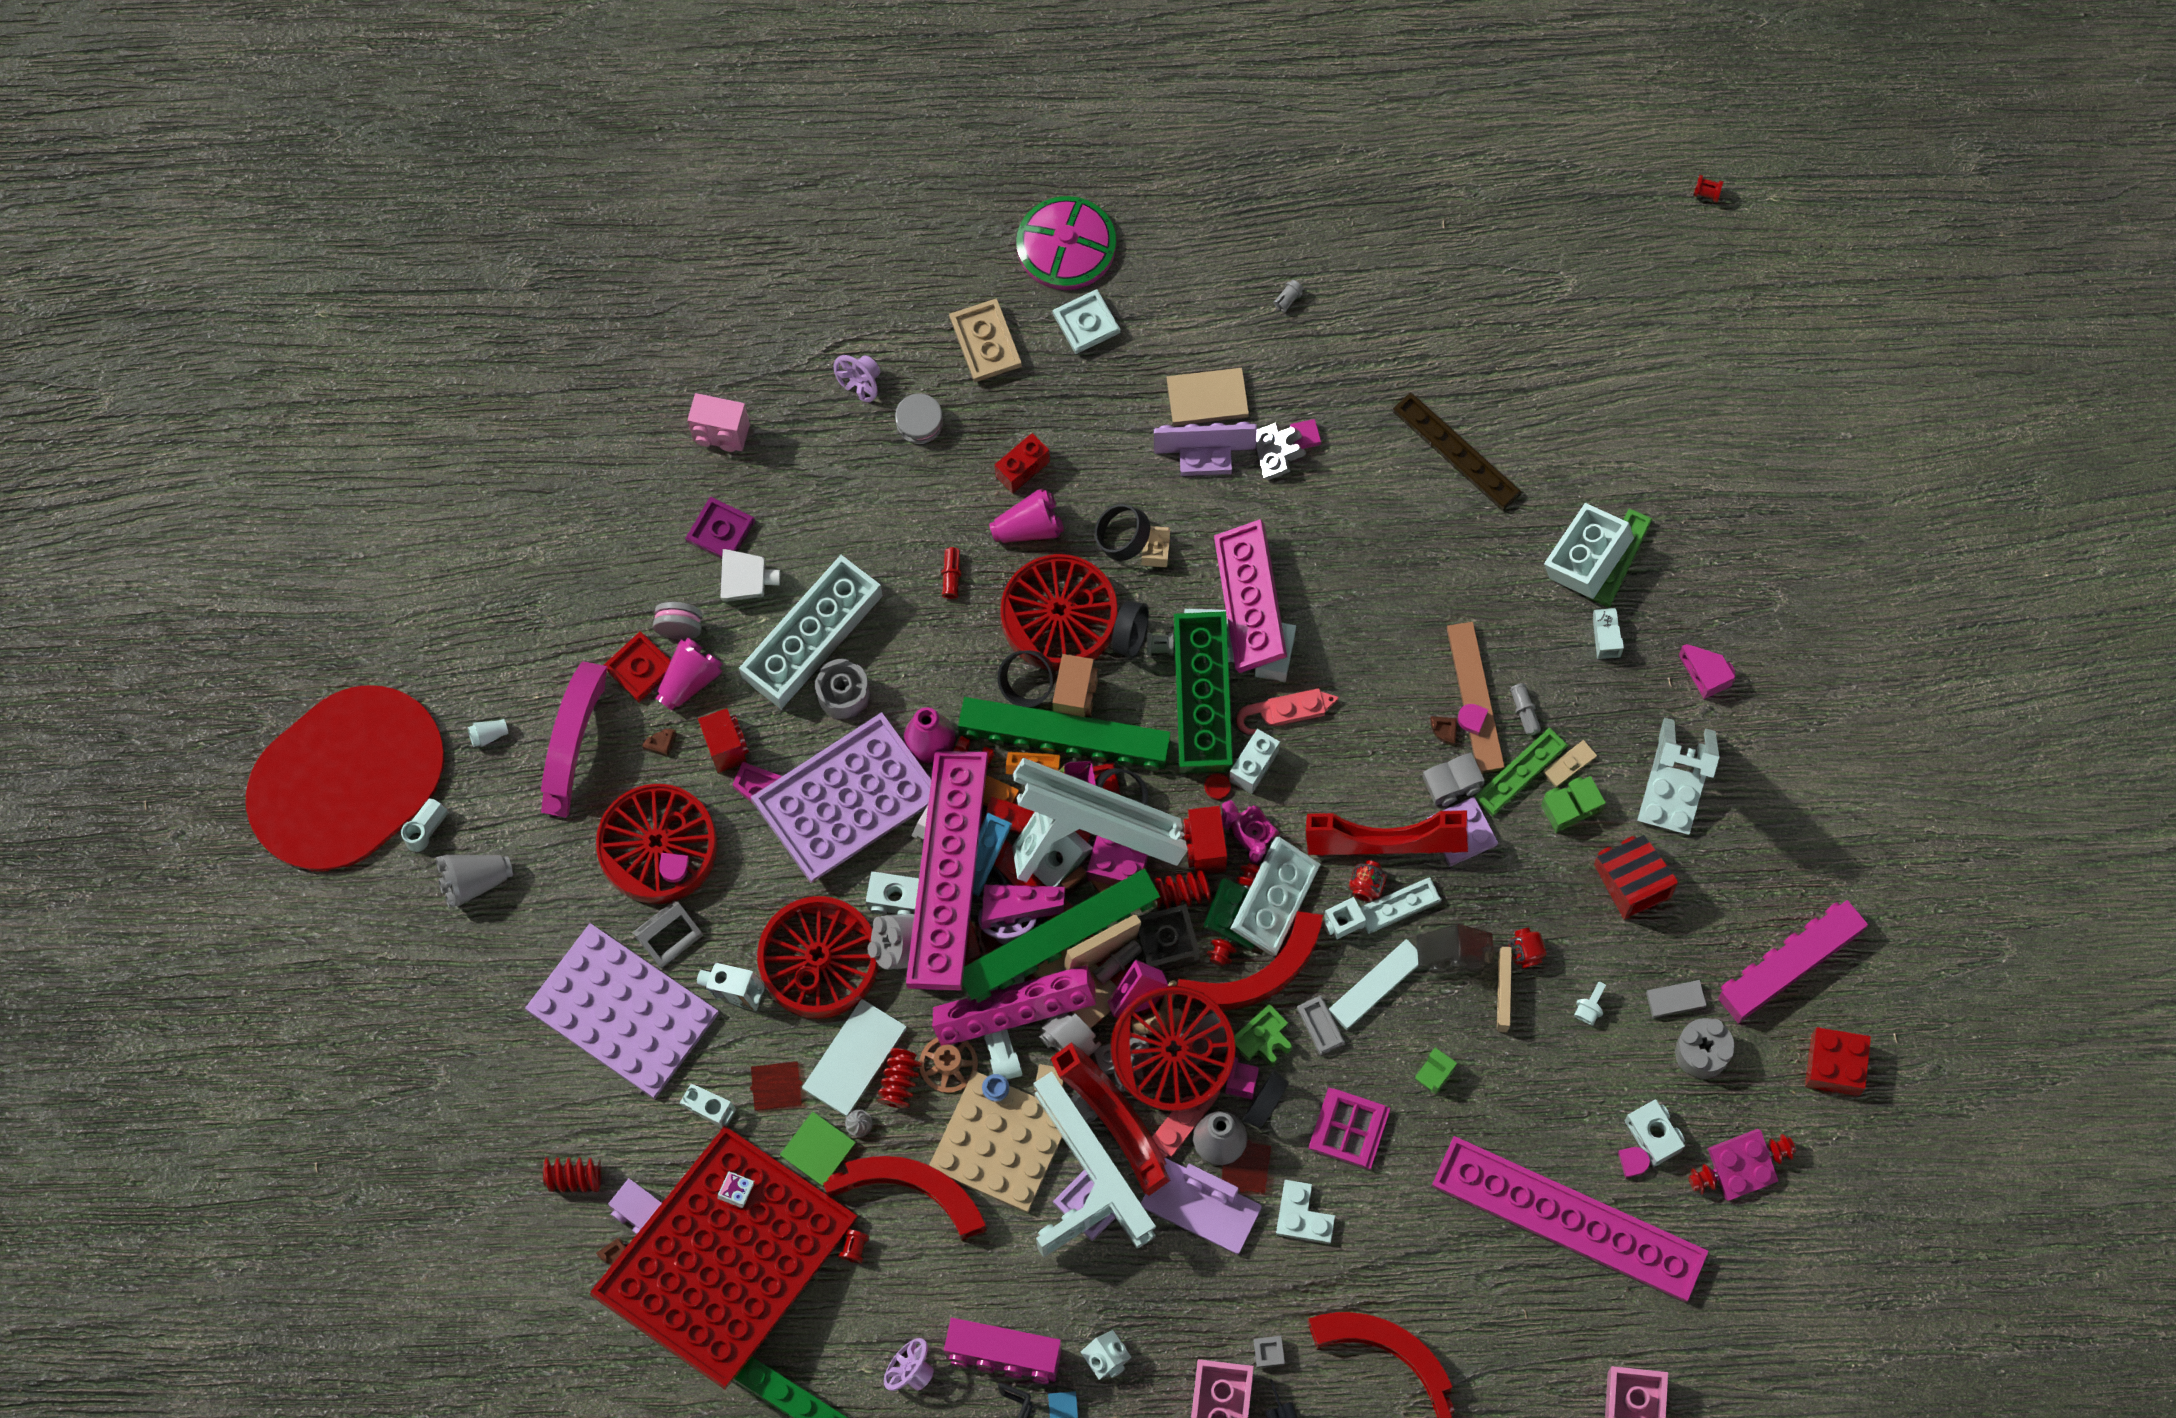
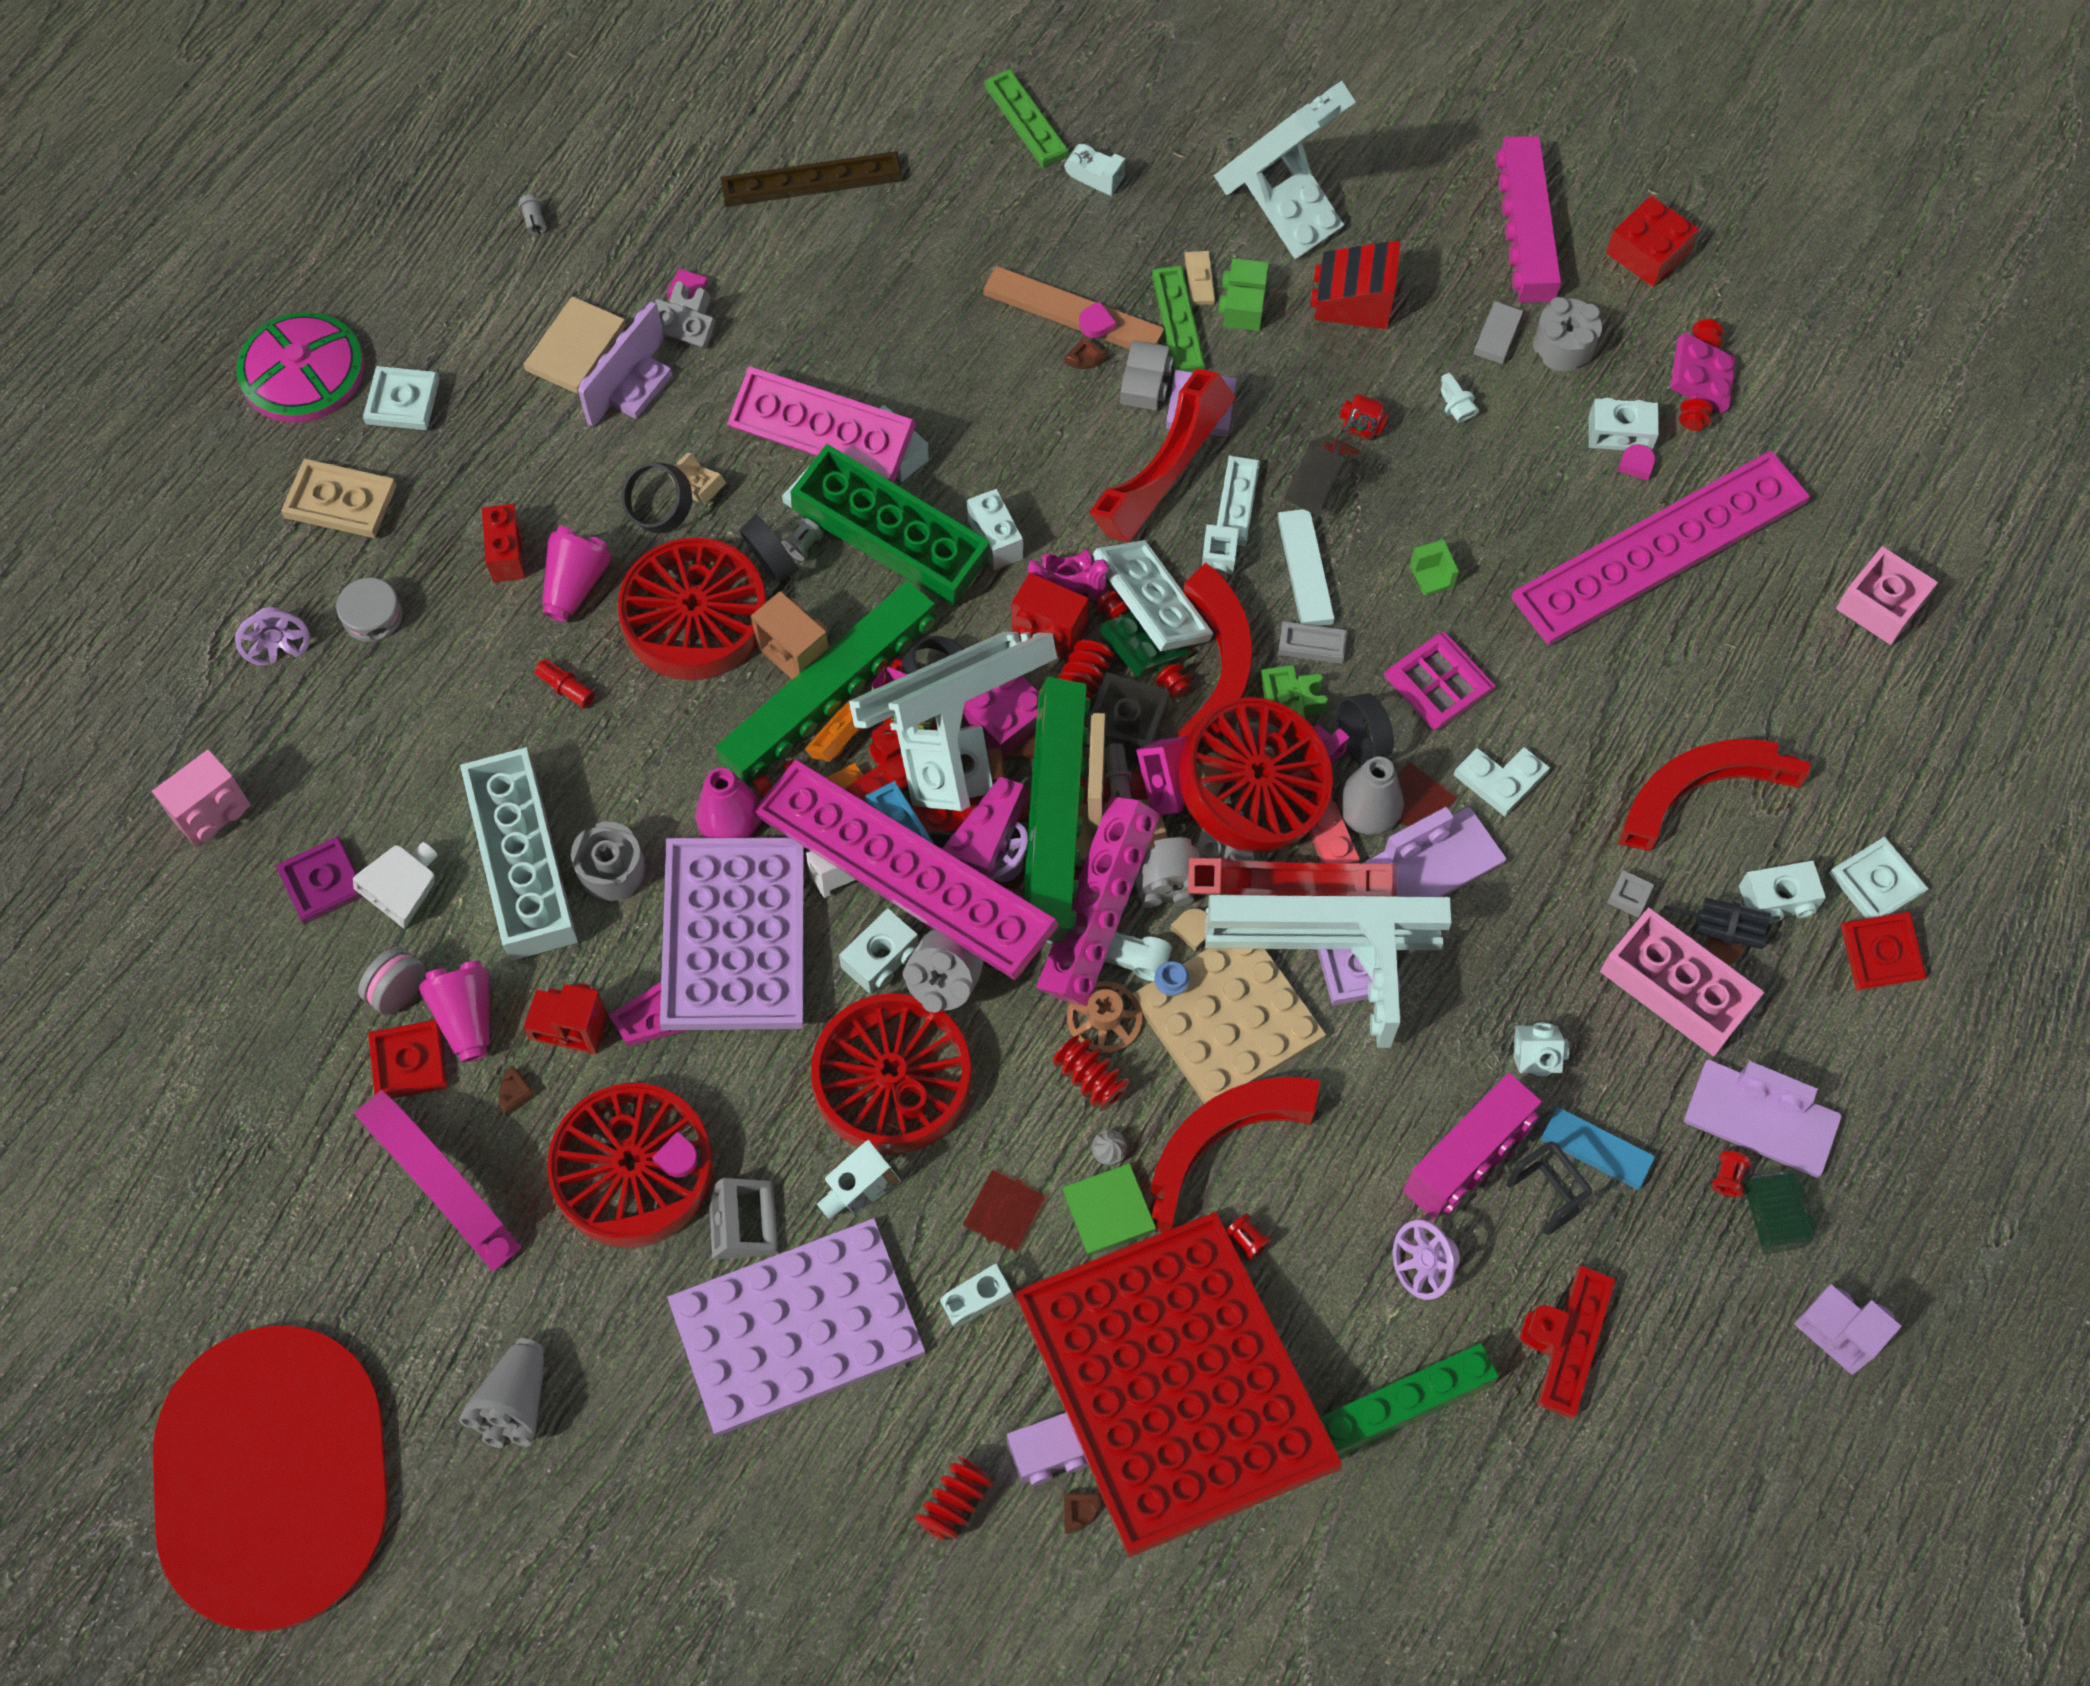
camera: 60 degrees left, 5 degrees down
(425, 823) = (402, 1413): light aqua piece -> none
(485, 732) = (348, 1275): light aqua cone -> none
(735, 1189) = (1104, 1319): tile -> none
(854, 1058) = (1031, 1108): light aqua tile -> none
(1006, 689) = (773, 669): black tyre -> none
(1217, 786) = (991, 583): red piece -> none
(1287, 709) = (961, 468): coral plate -> none
(1367, 881) = (1194, 508): red head -> none
(1504, 989) = (1392, 461): tan tile -> none
(1525, 709) = (1118, 277): light grey axle -> none
(1589, 550) = (1006, 126): light aqua brick -> none
(1707, 670) = (1192, 115): dark pink slope -> none

